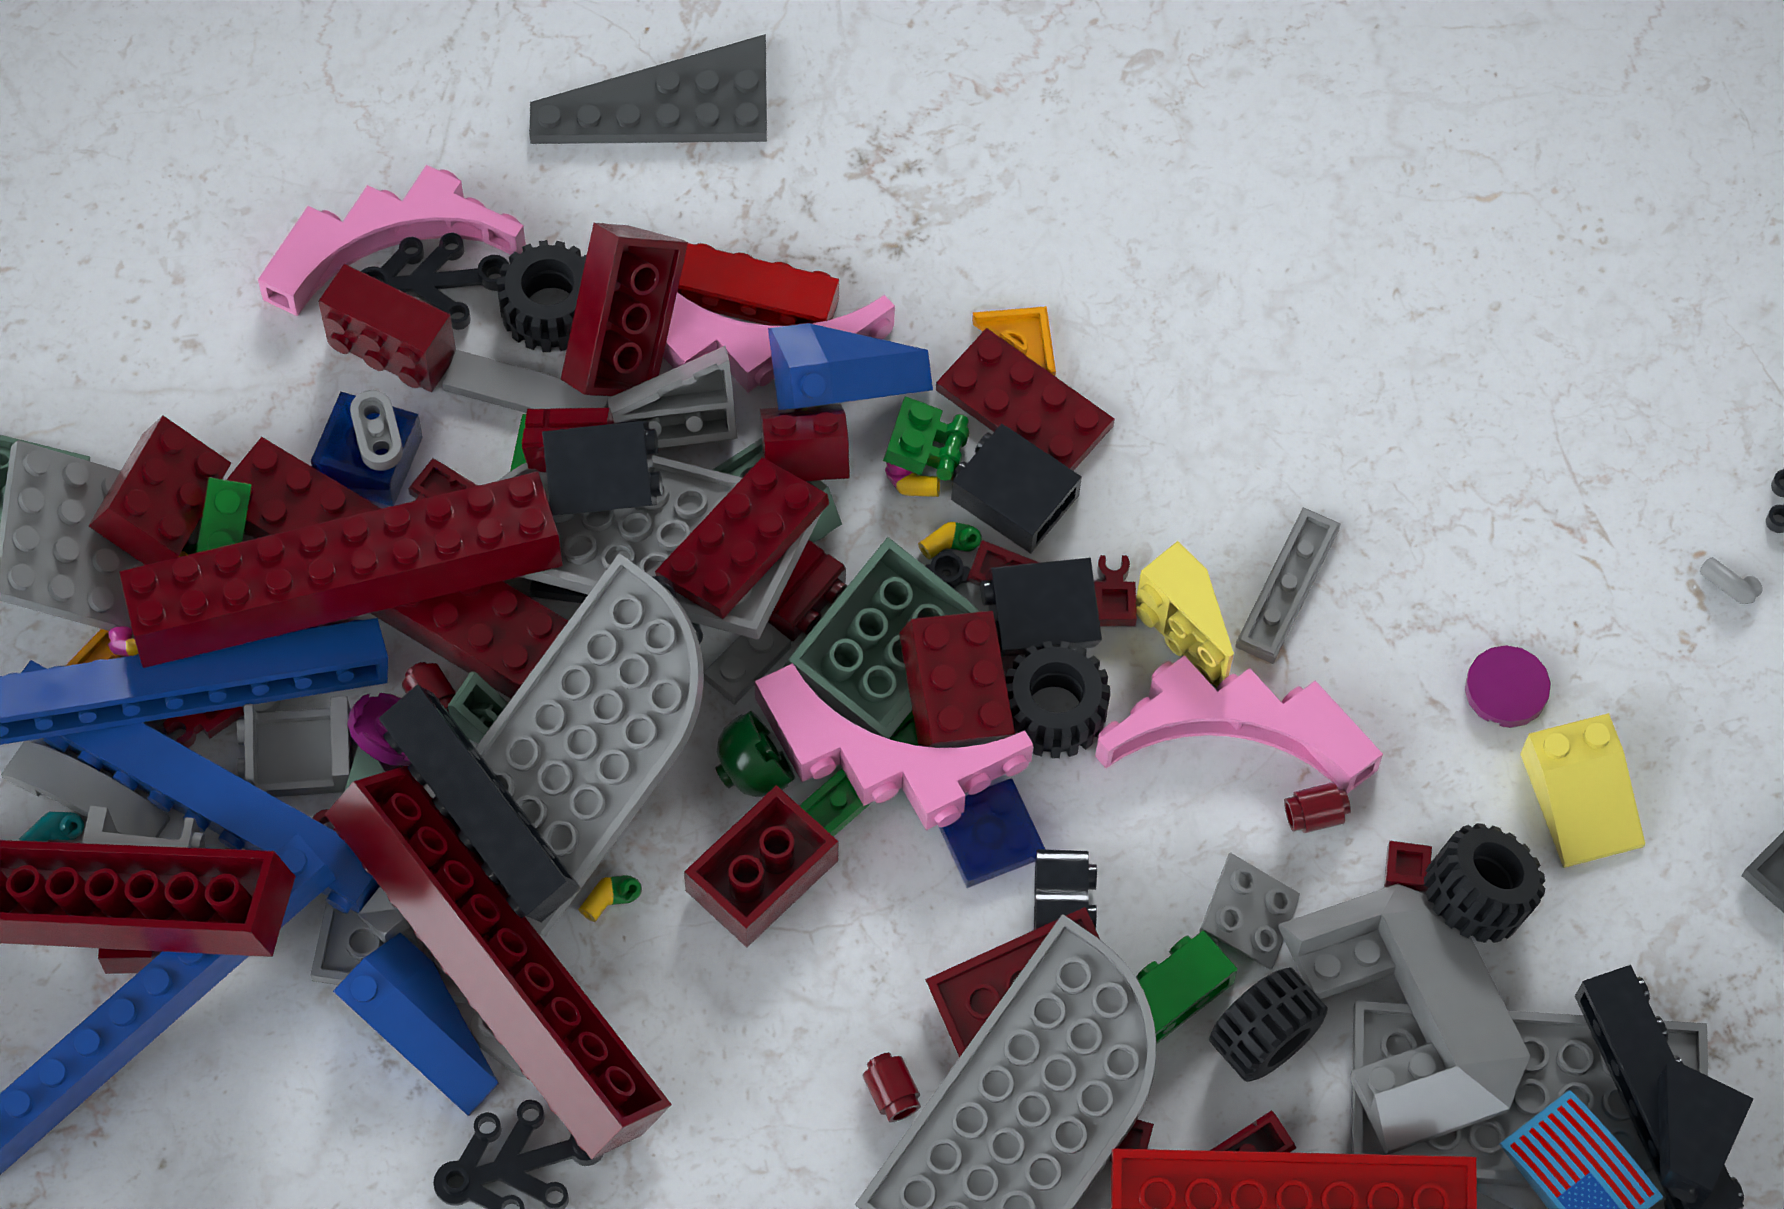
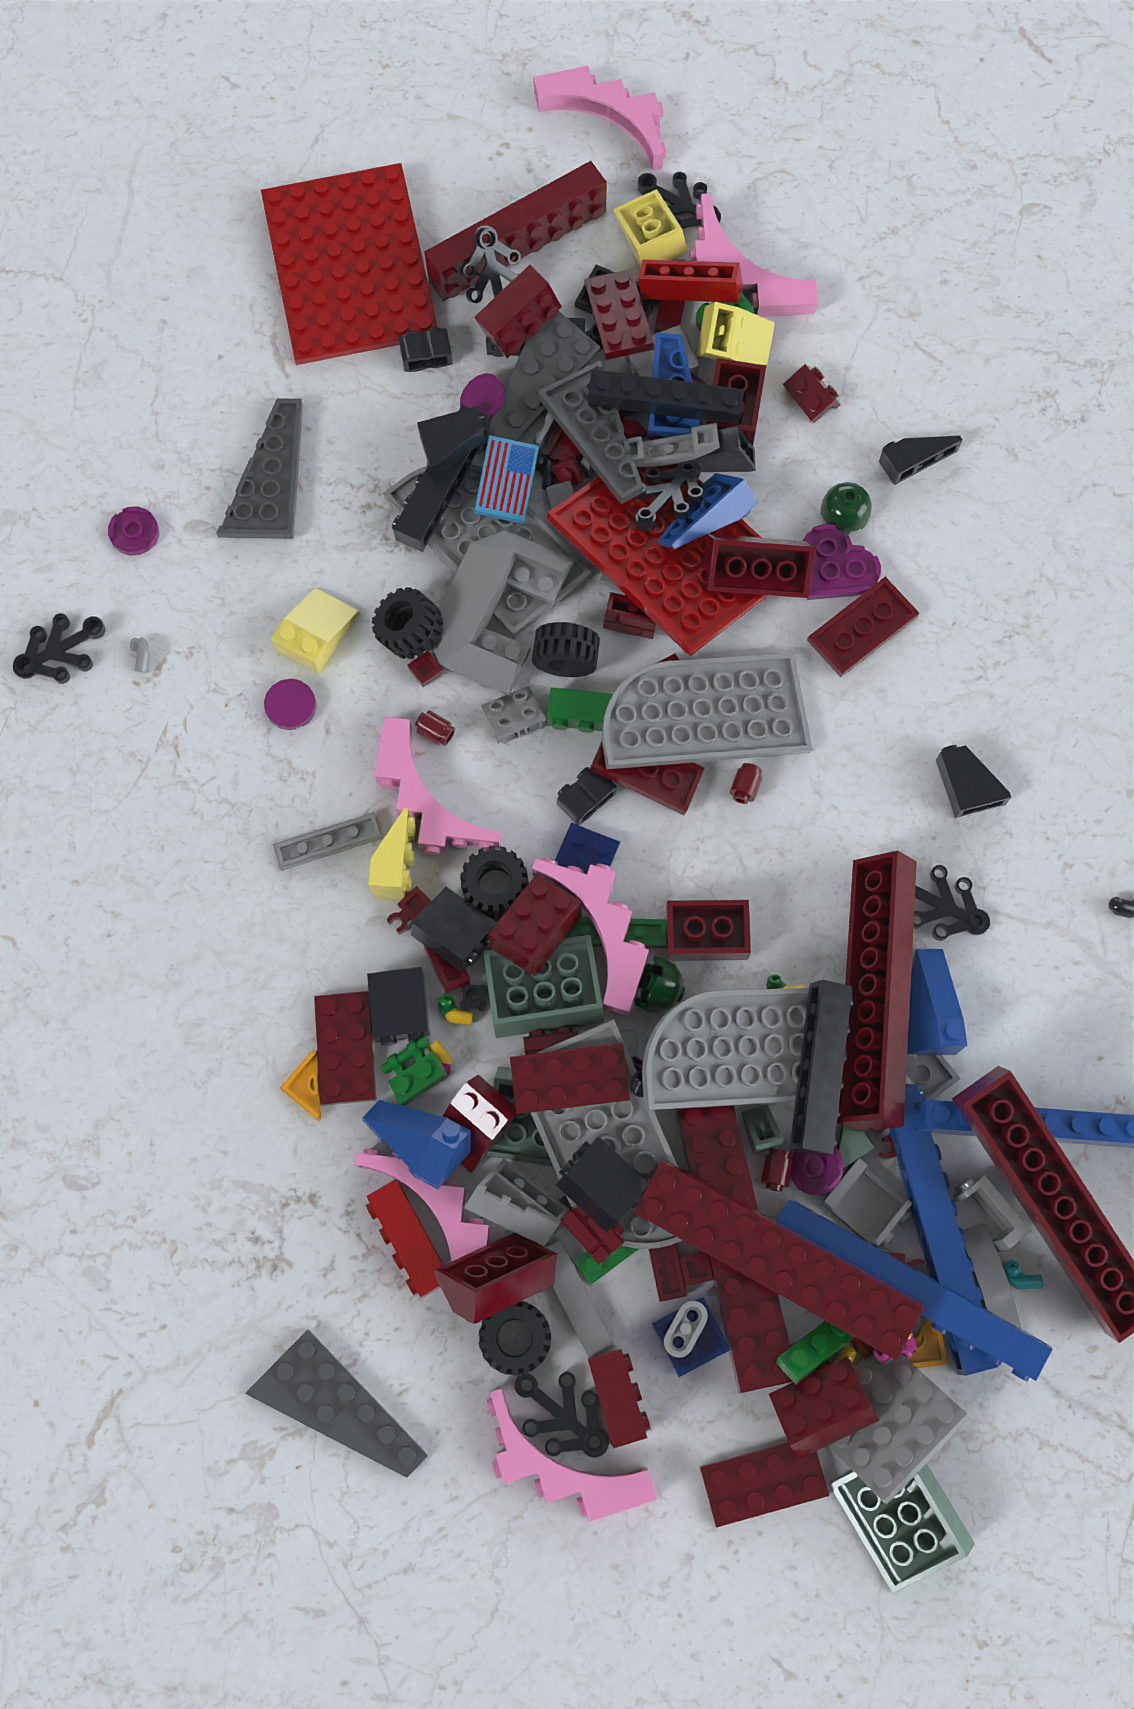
camera: 130 degrees left, 10 degrees up
(175, 380) = (762, 1483): none -> dark red plate

